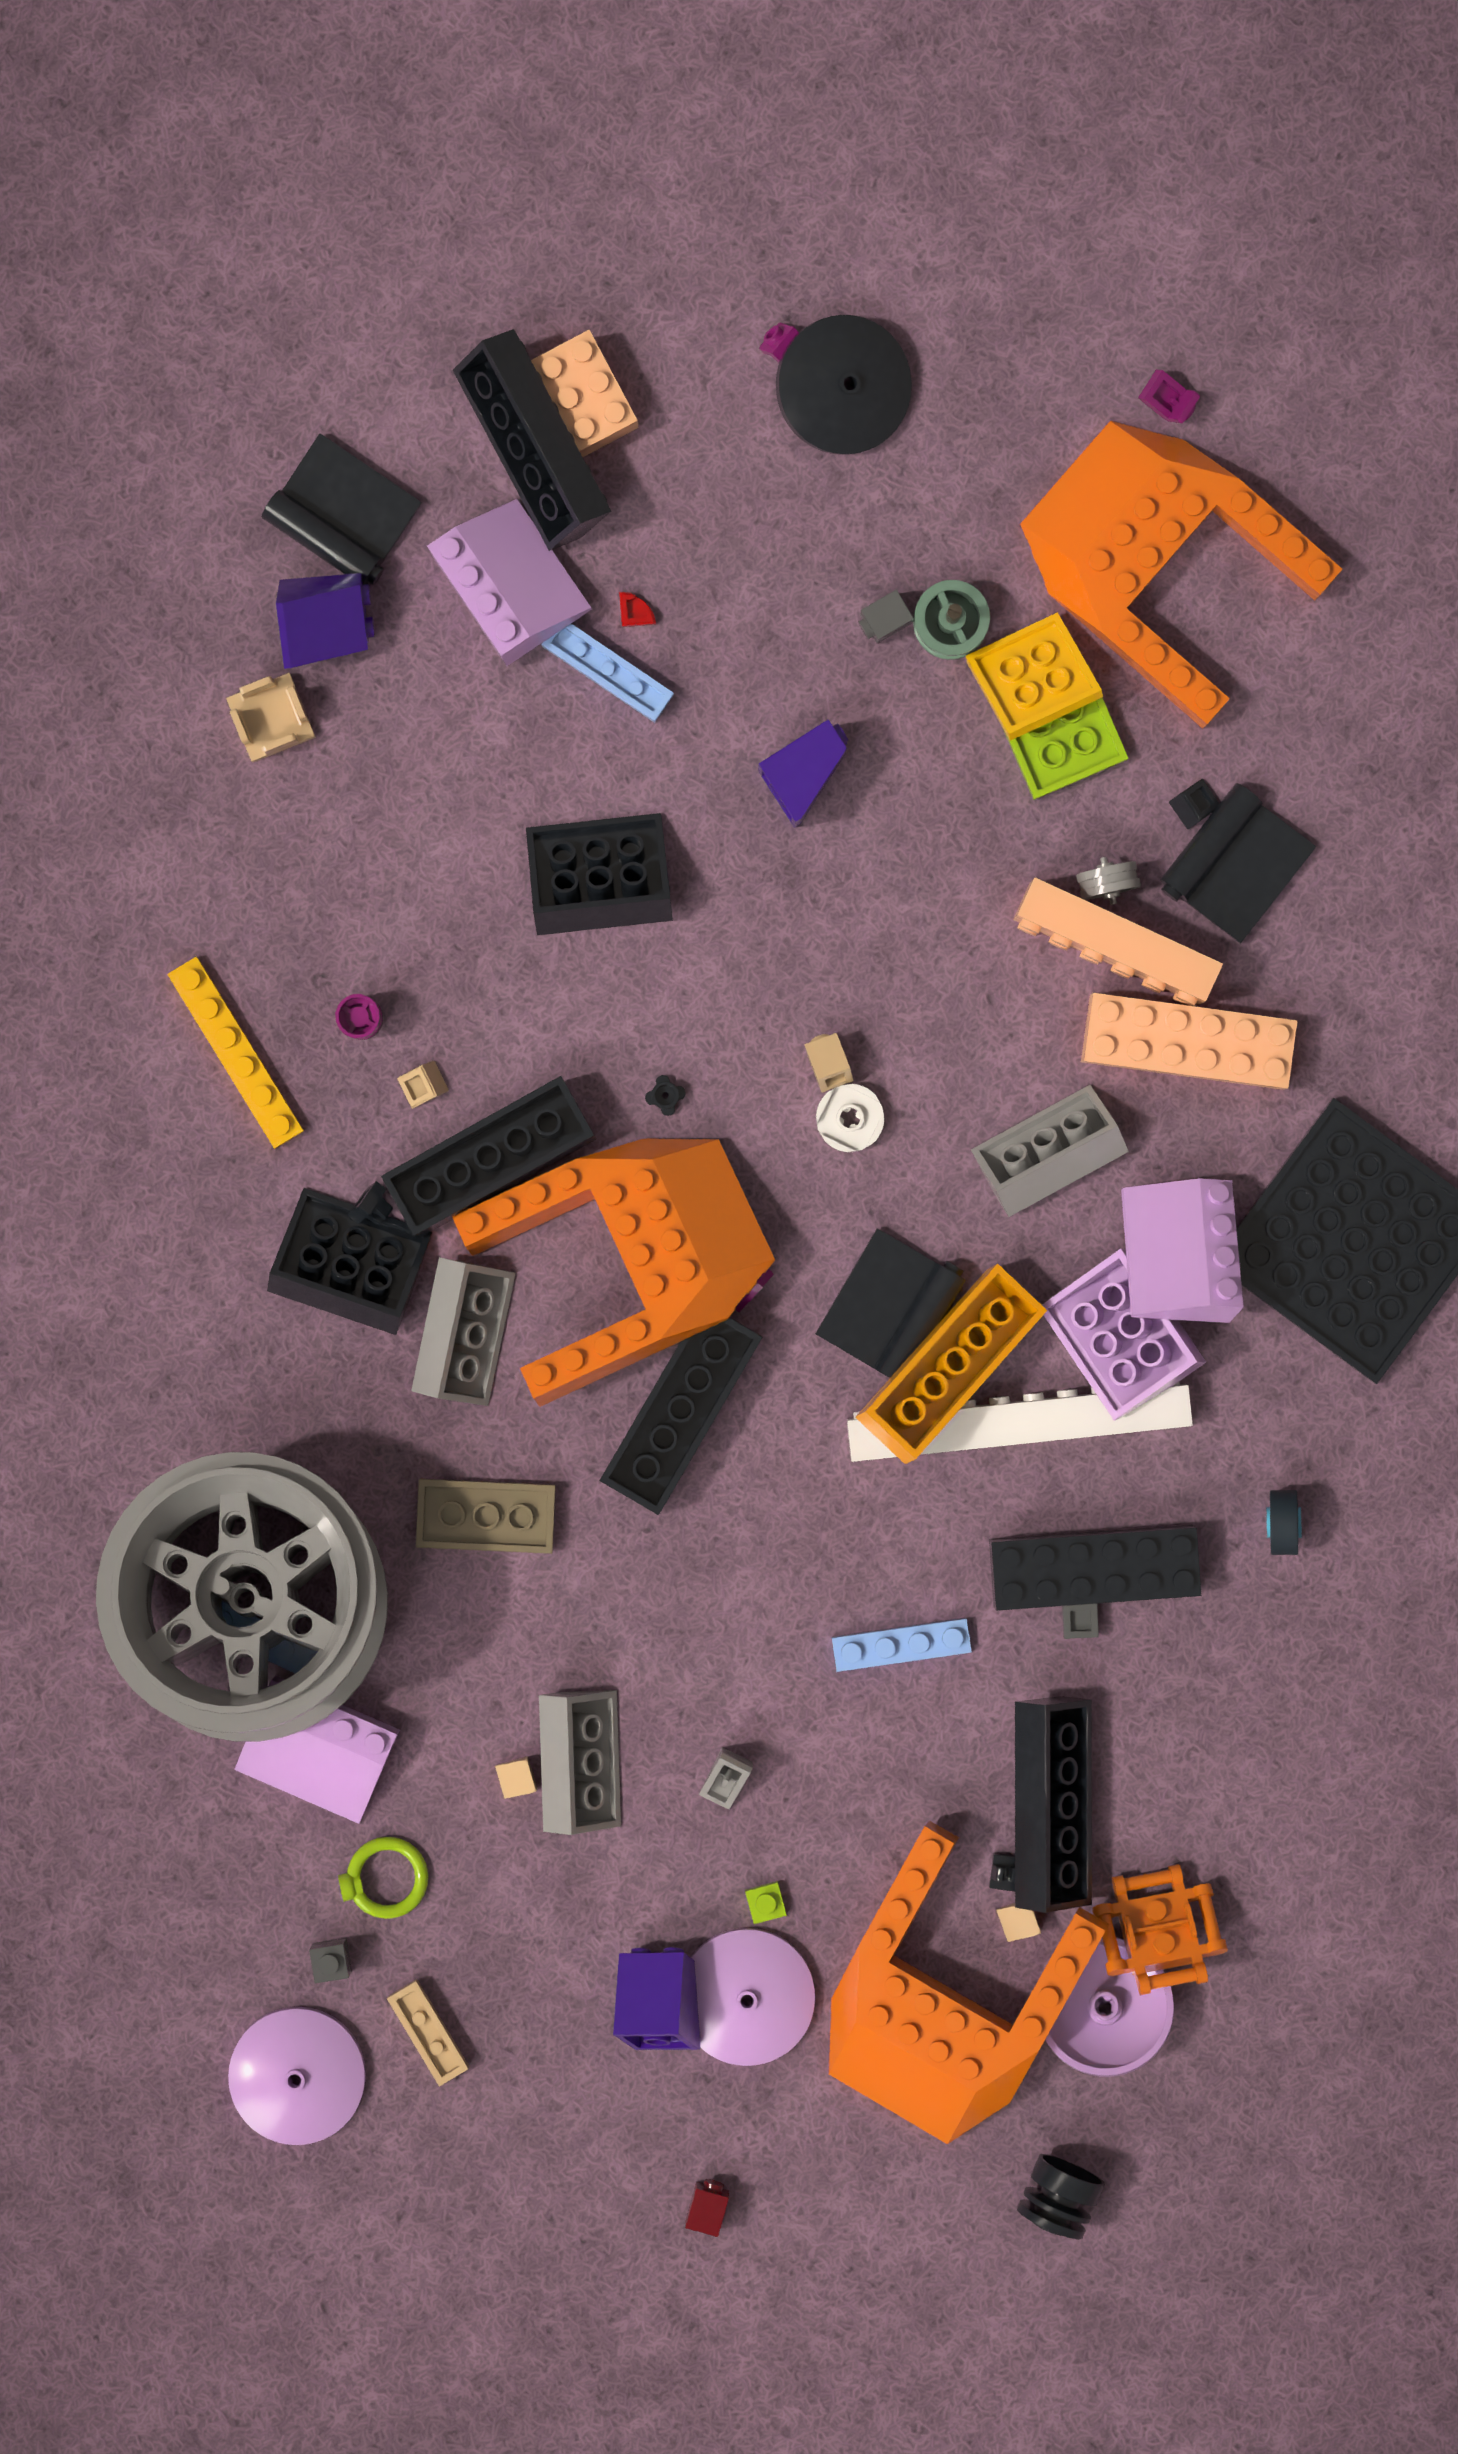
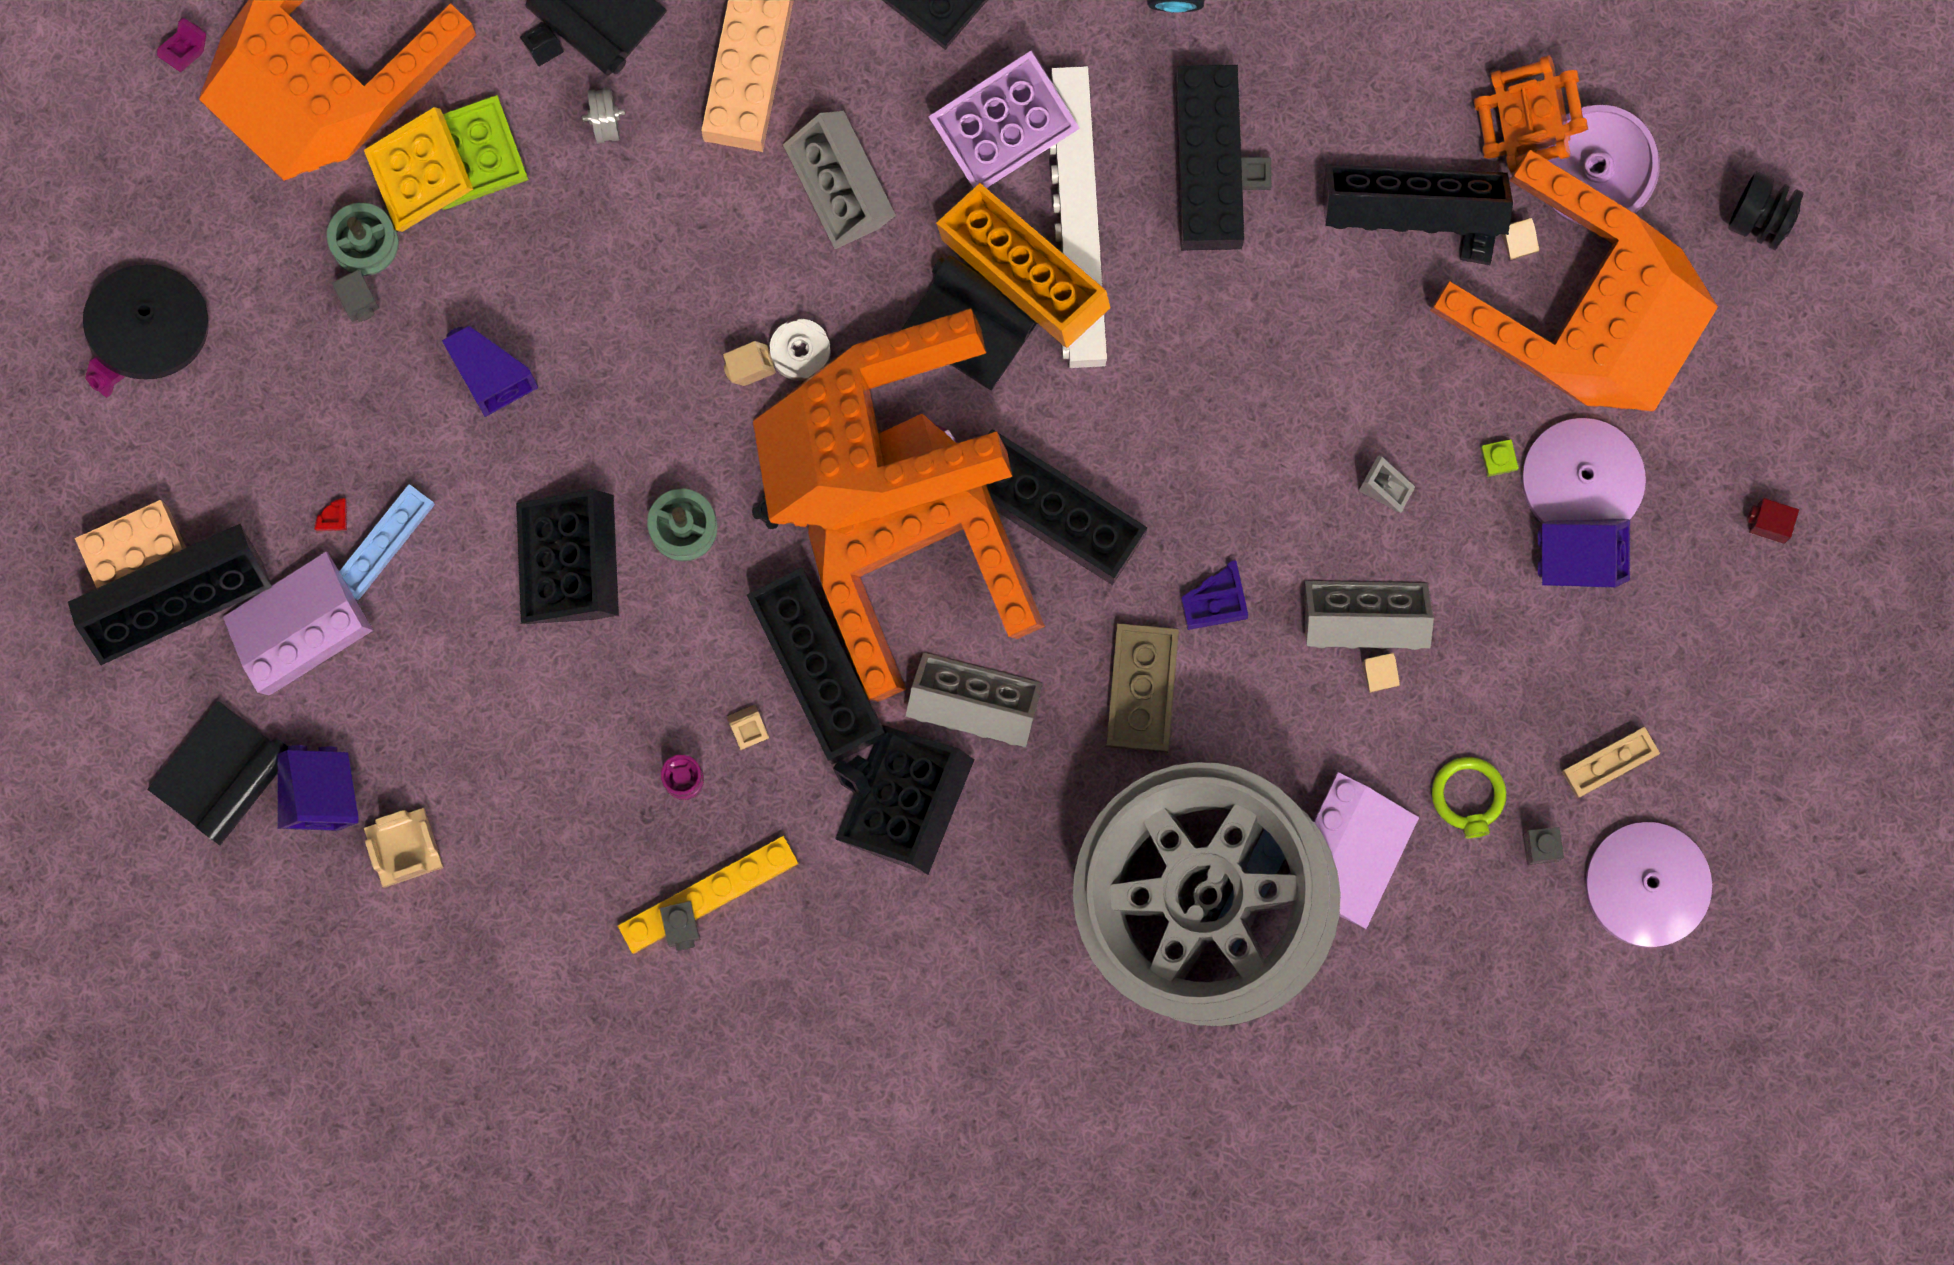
camera: 90 degrees left, 10 degrees down
(197, 1024) = (680, 925): none -> dark grey bracket
(587, 1593) = (1216, 600): none -> dark purple wing
(641, 999) = (682, 524): none -> sand green wheel
(733, 1152) = (824, 444): none -> orange wedge
(901, 1644) = (1272, 329): light blue plate -> none
(1118, 942) = (658, 109): light nougat brick -> none
(1182, 1250) = (933, 62): lavender slope -> none

